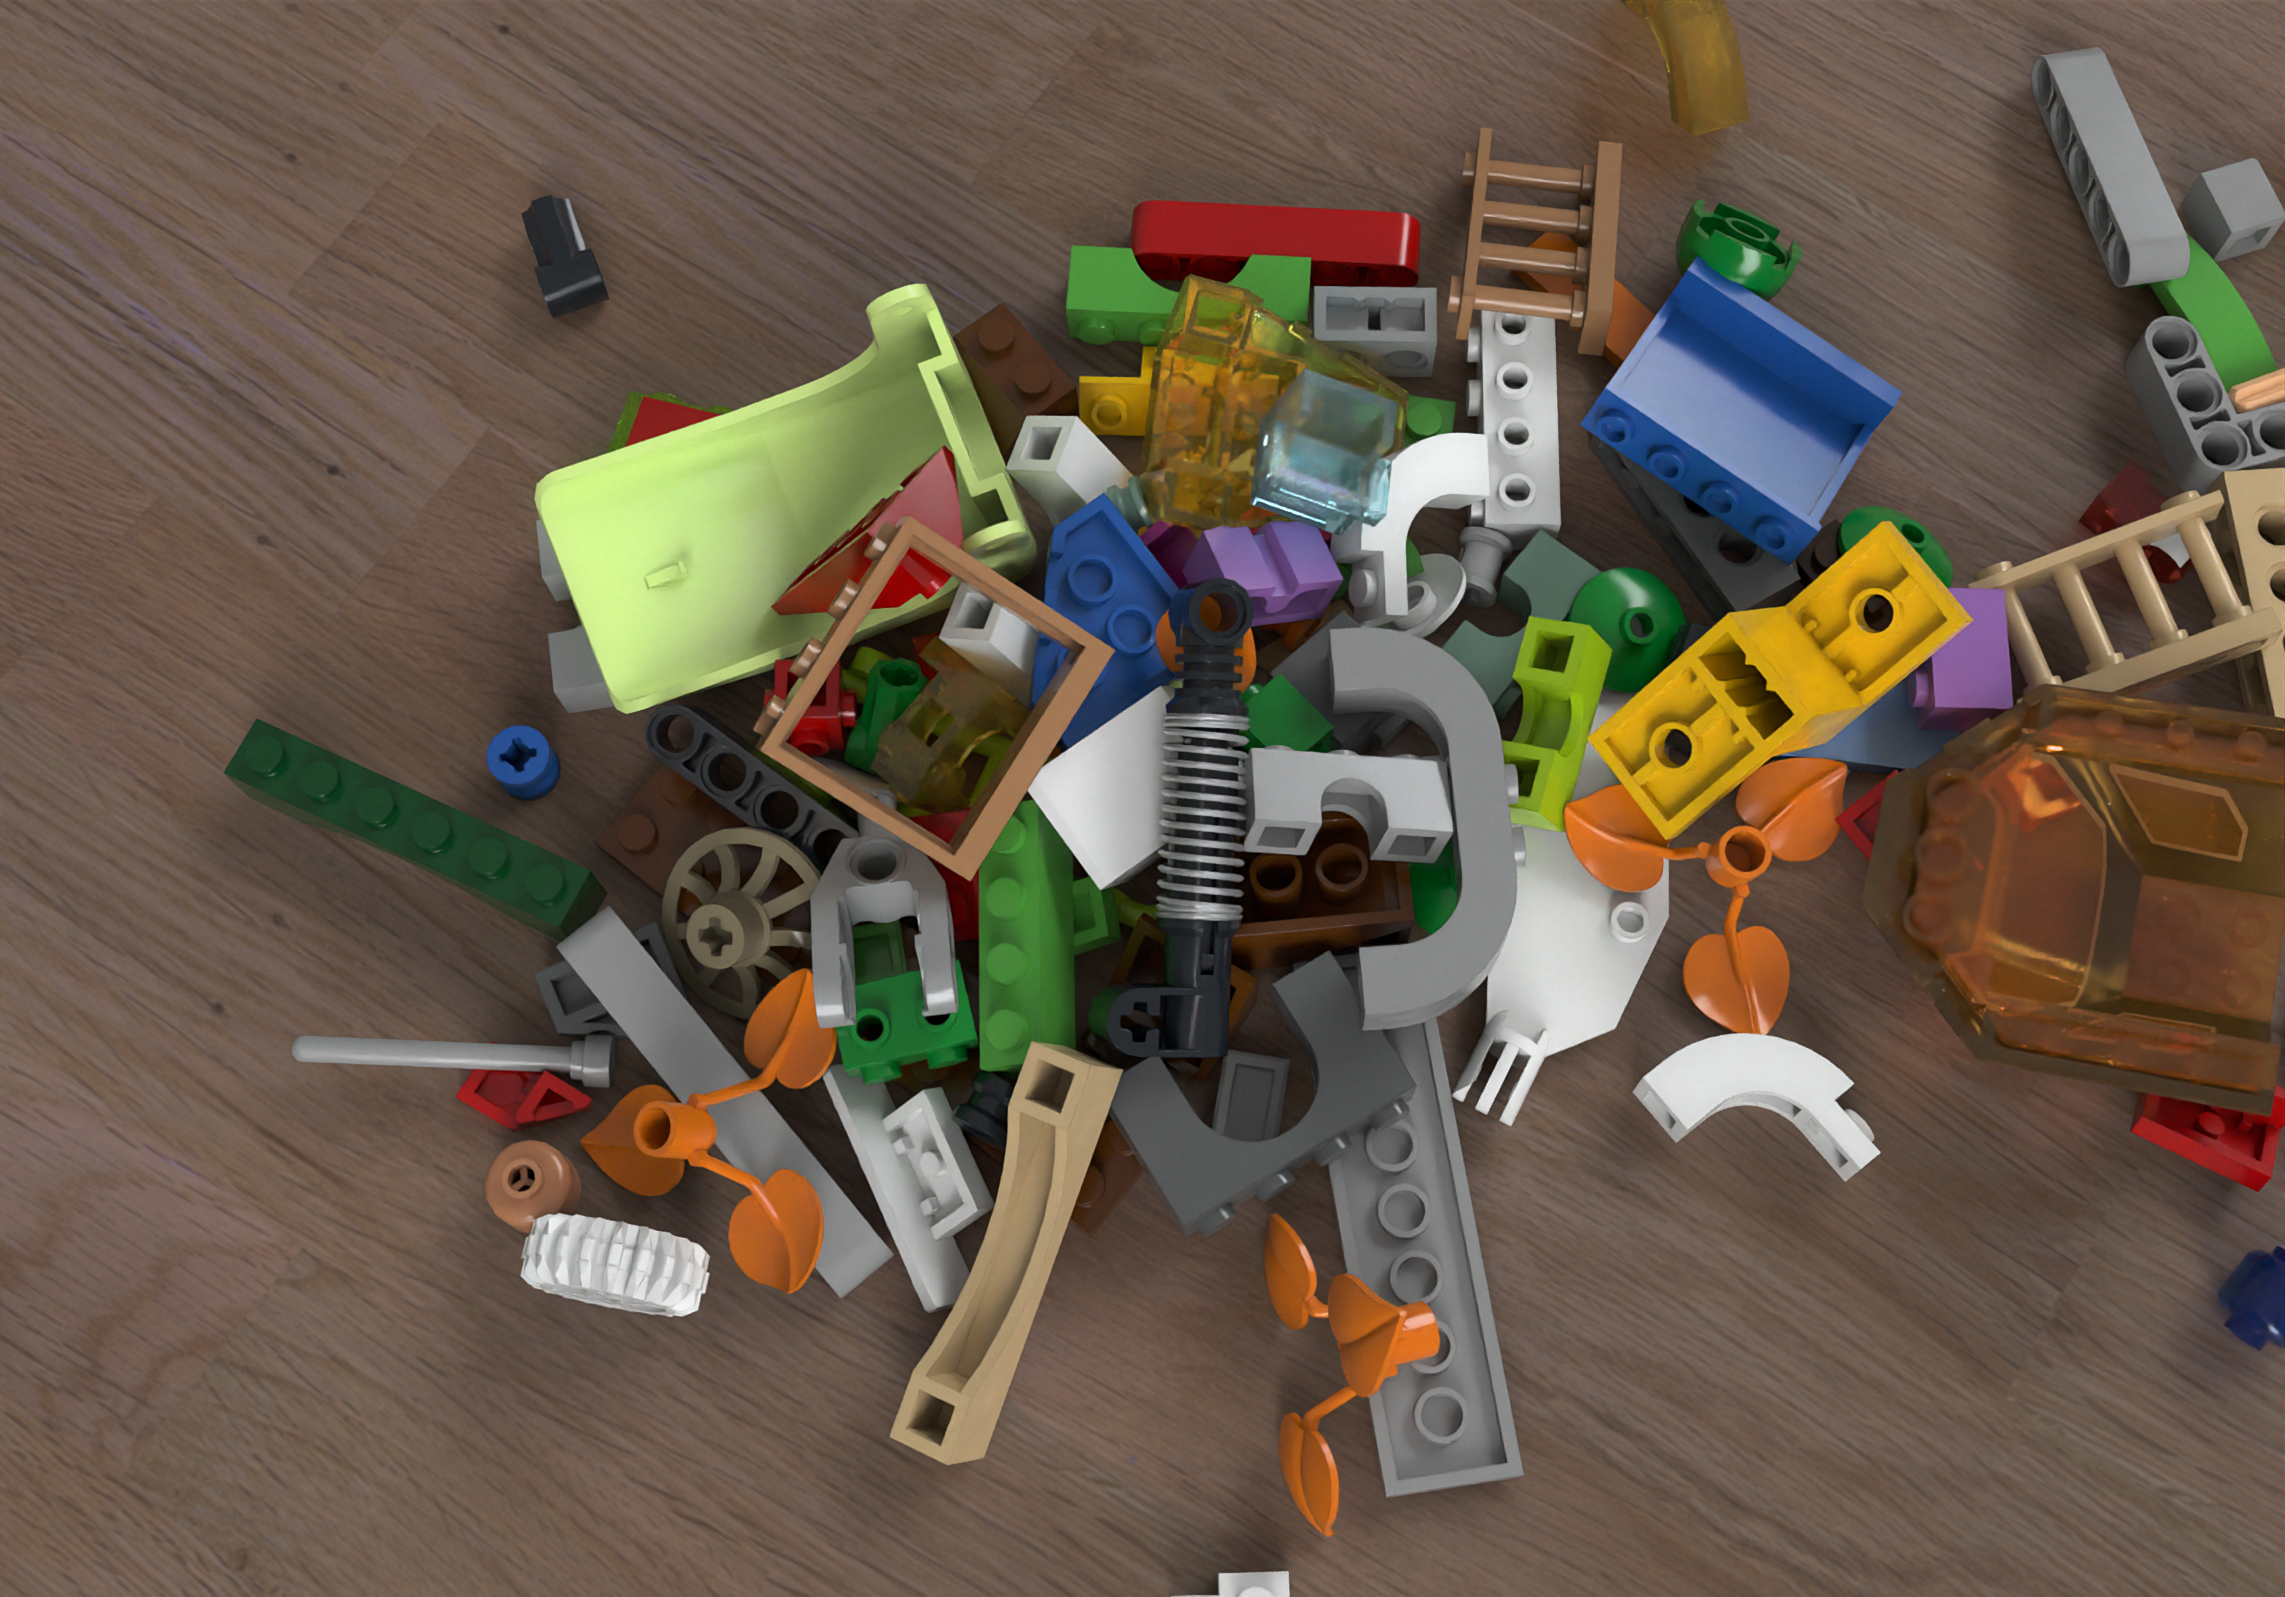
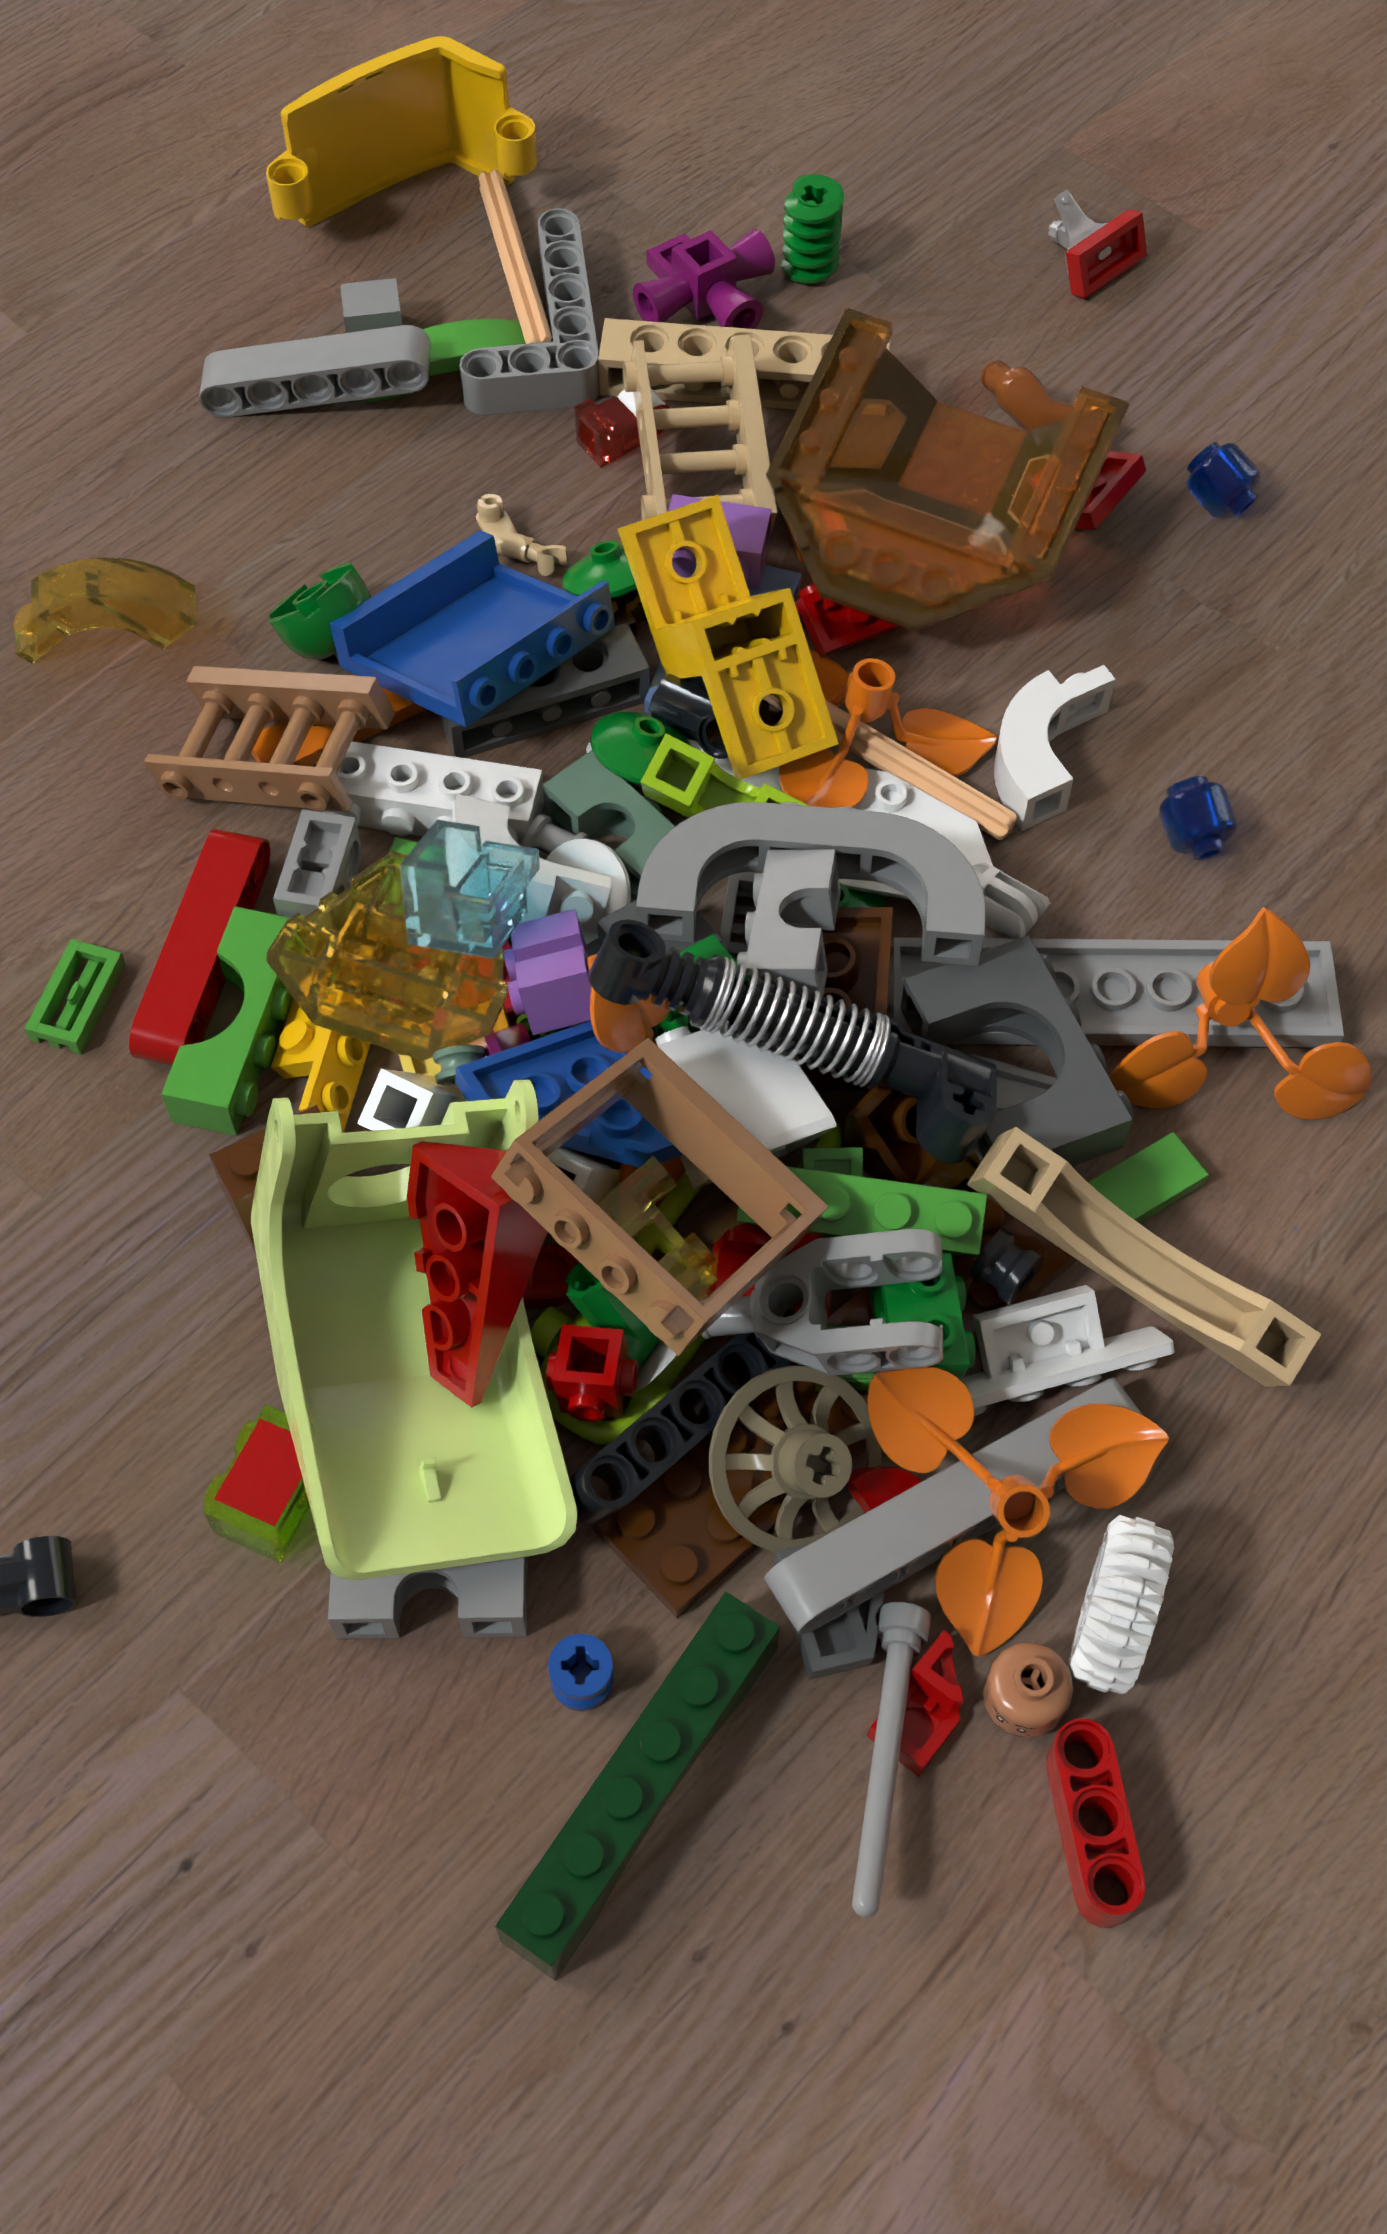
camera: 85 degrees left, 10 degrees down
(378, 1262) = (1087, 1854): none -> red beam
(732, 1017) = (879, 1484): none -> red tile
(1153, 1272) = (1152, 1178): none -> bright green tile
(1198, 159) = (76, 1039): none -> bright green tile
(1681, 1298) = (1197, 817): none -> clear blue head
(1682, 934) = (920, 773): none -> light nougat axle
(1924, 430) = (509, 543): none -> tan arm

